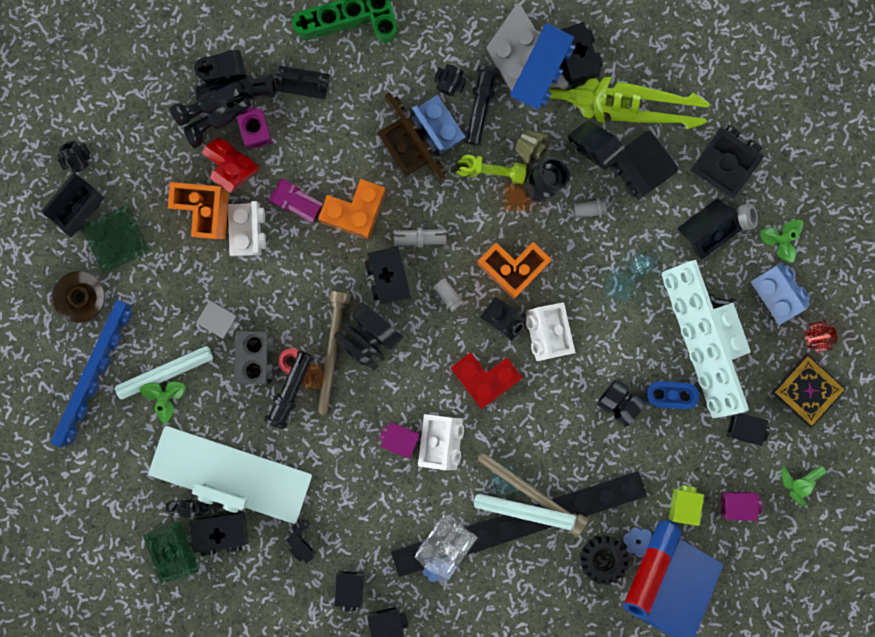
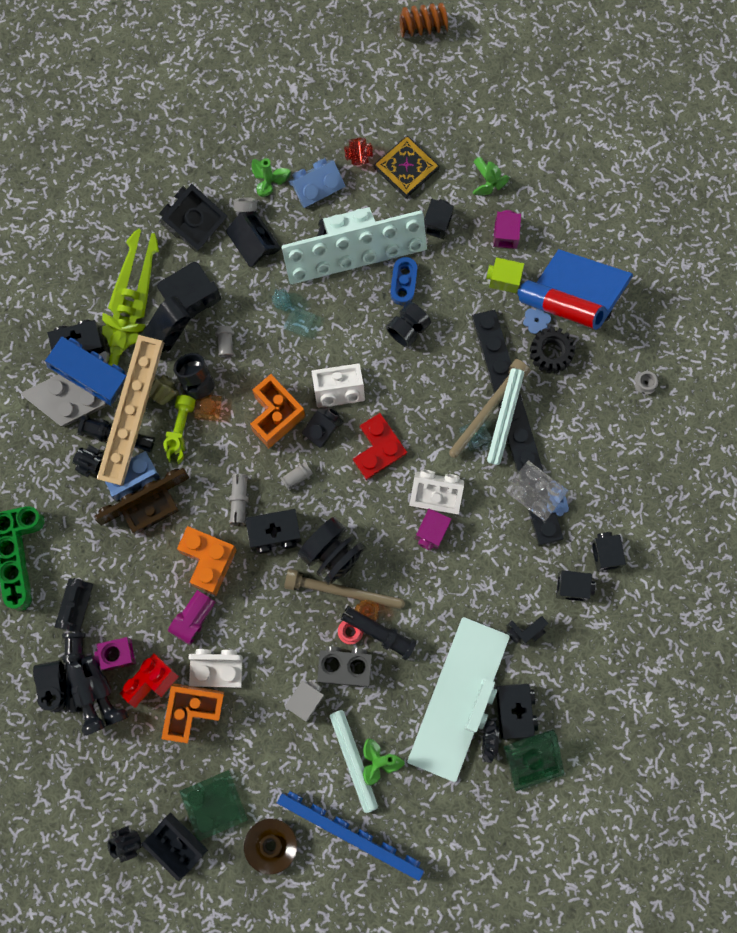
camera: 90 degrees left, 10 degrees down
(503, 117) = (130, 410): none -> tan plate

